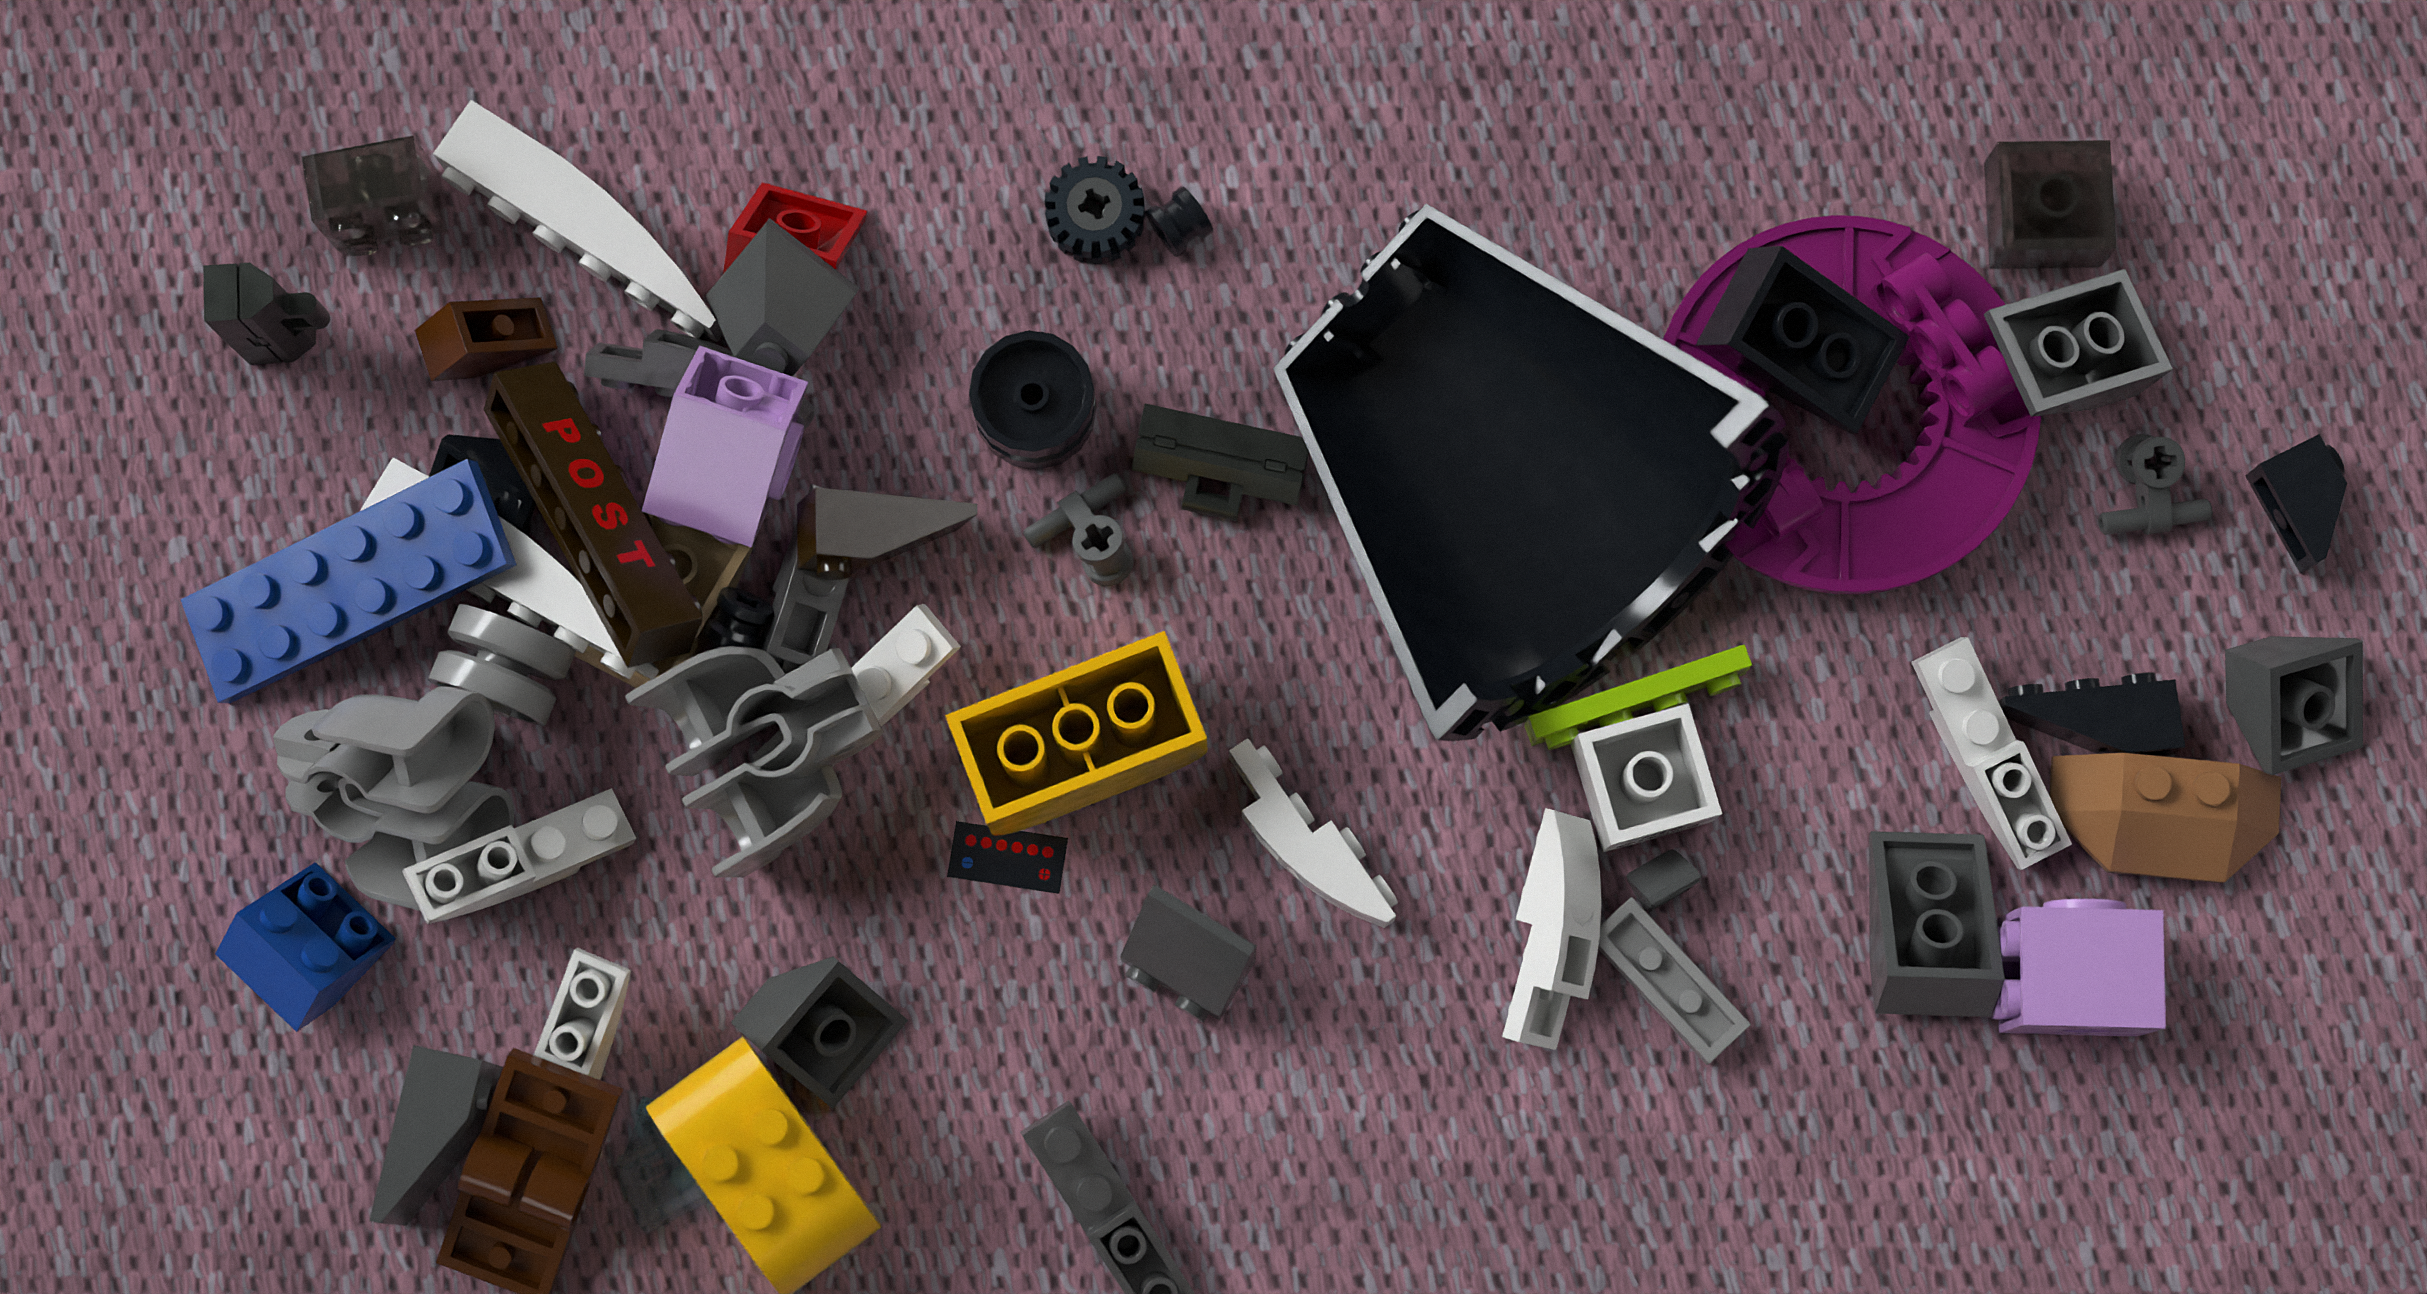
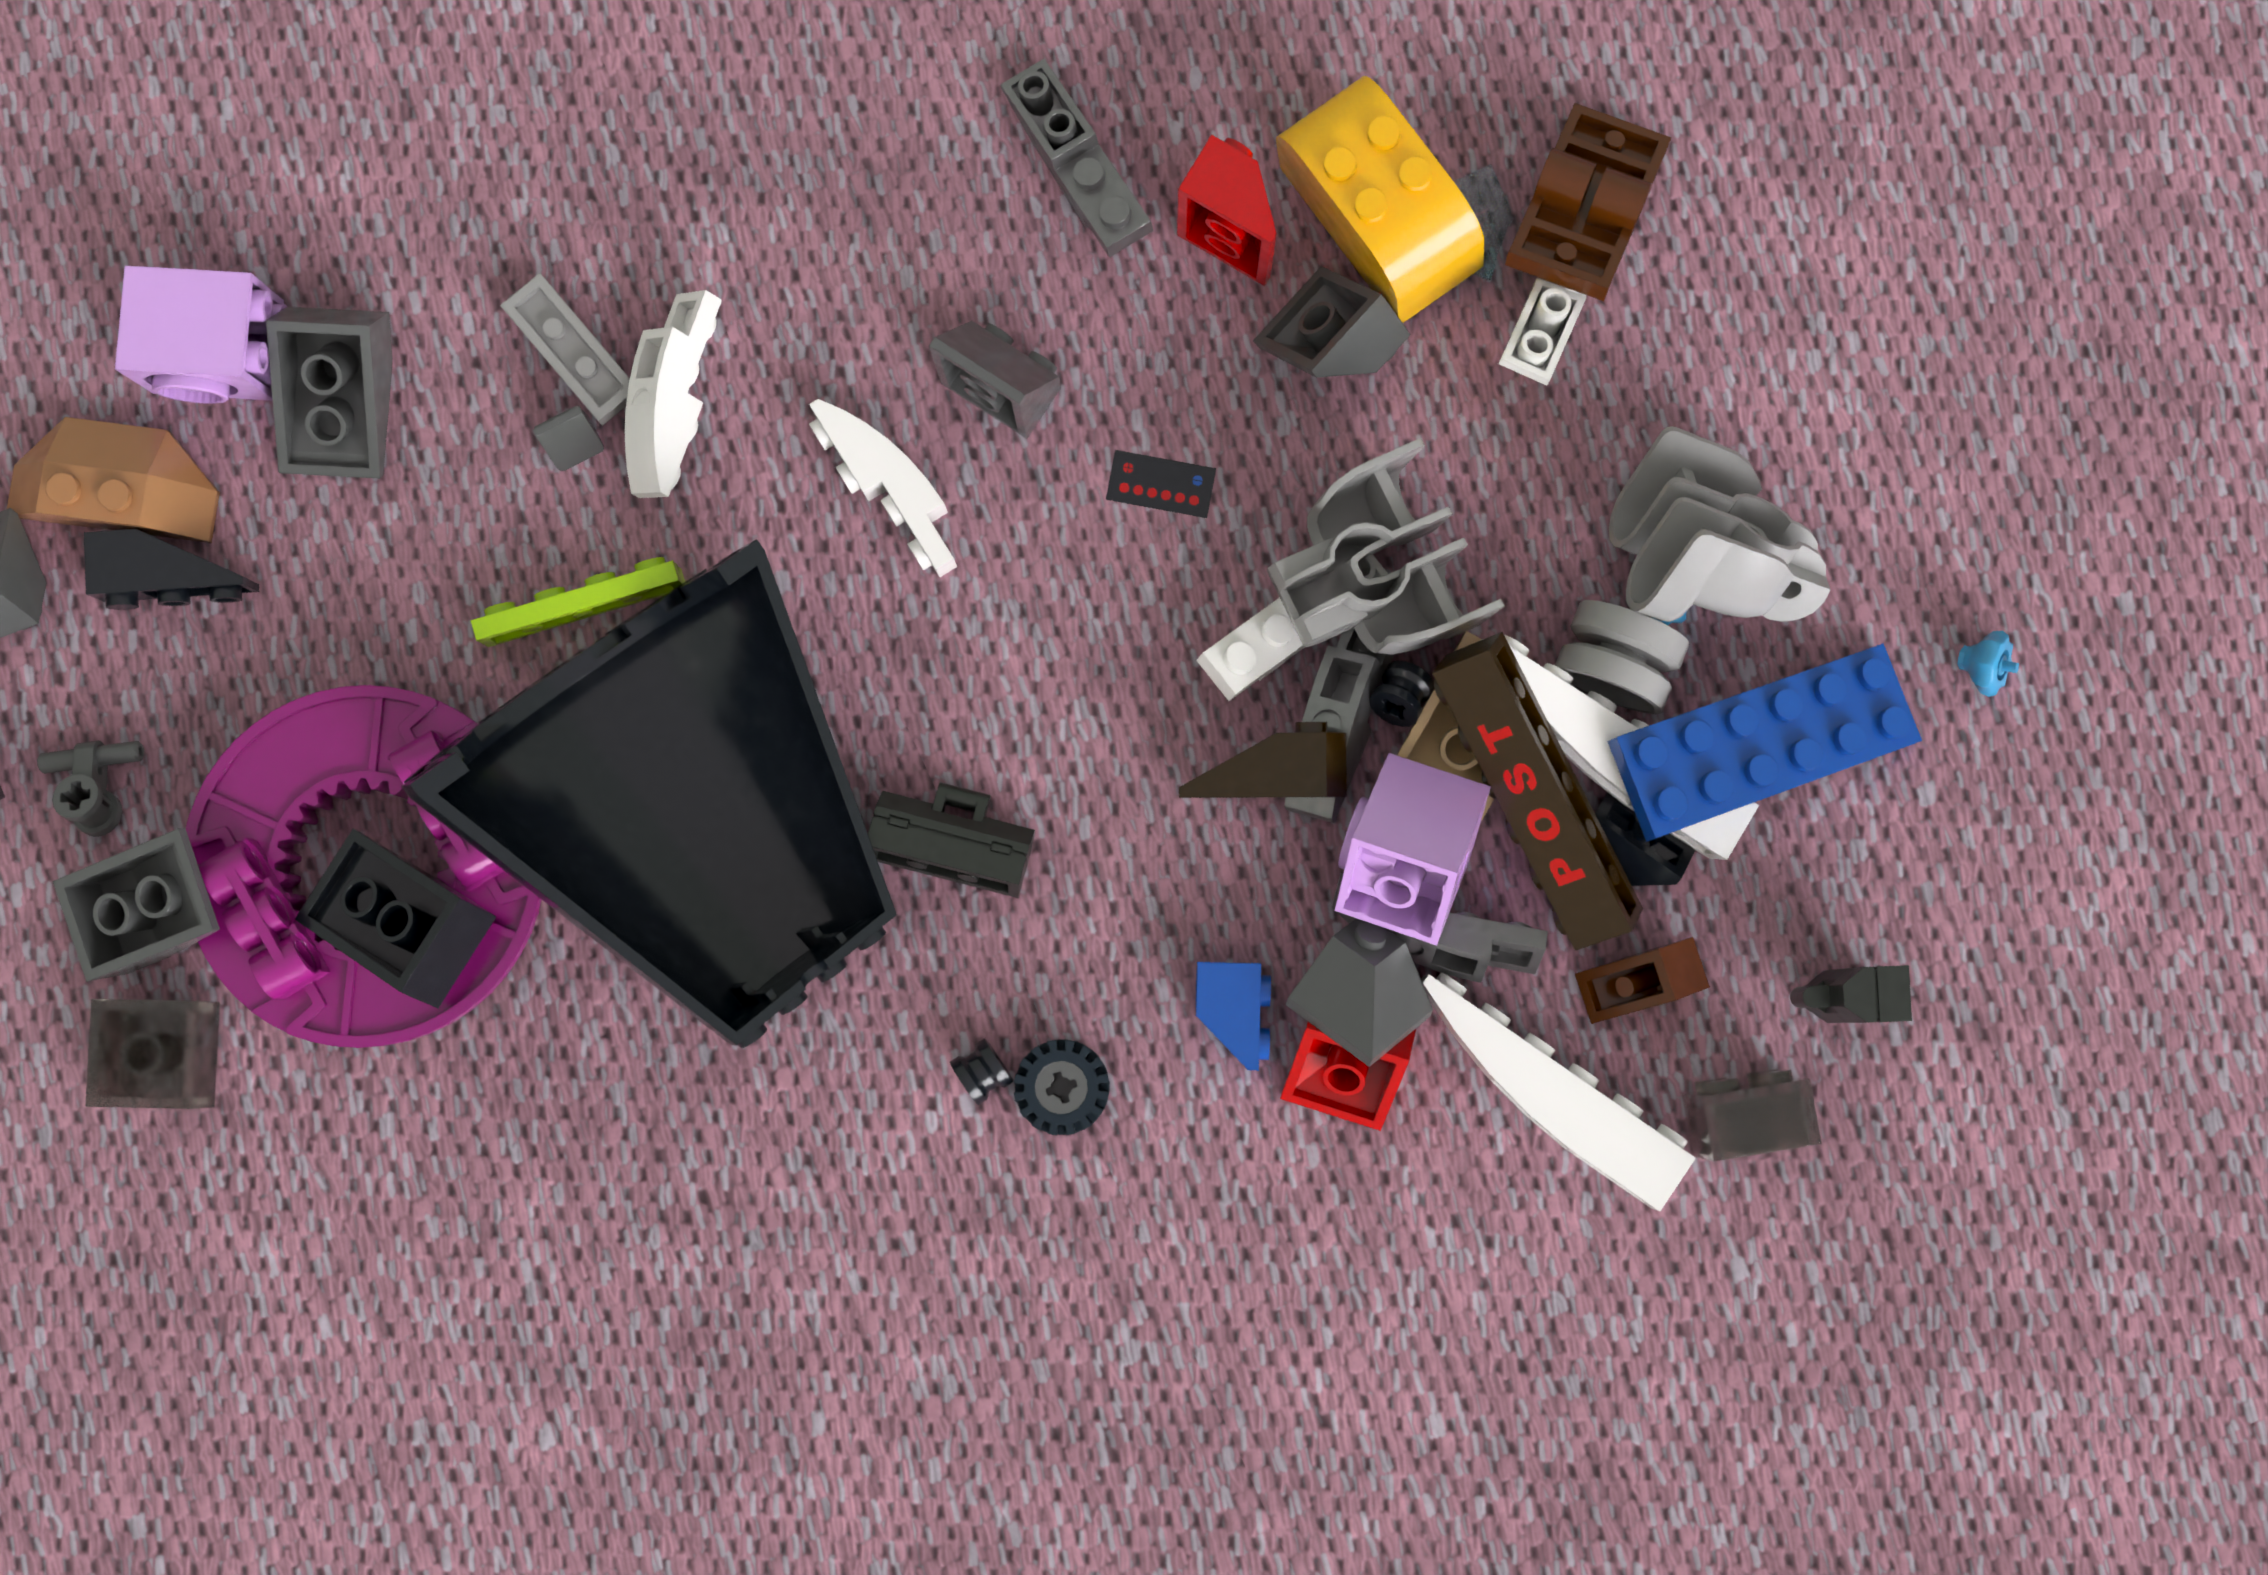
camera: 175 degrees left, 5 degrees up
(105, 684) = (1988, 662): none -> dark azure piece
(303, 945) = (1795, 418): blue slope -> none
(433, 1129) = (1664, 269): dark grey slope -> none
(519, 858) = (1603, 480): white slope -> none
(920, 295) = (1230, 1008): none -> blue slope
(931, 1145) = (1227, 209): none -> red slope
(1061, 382) = (1138, 867): black wheel -> none
(1078, 735) = (1090, 565): yellow brick -> none
(1090, 531) = (1088, 796): dark grey piece -> none
(1645, 777) = (575, 522): white brick -> none
(1989, 755) = (265, 538): white slope -> none

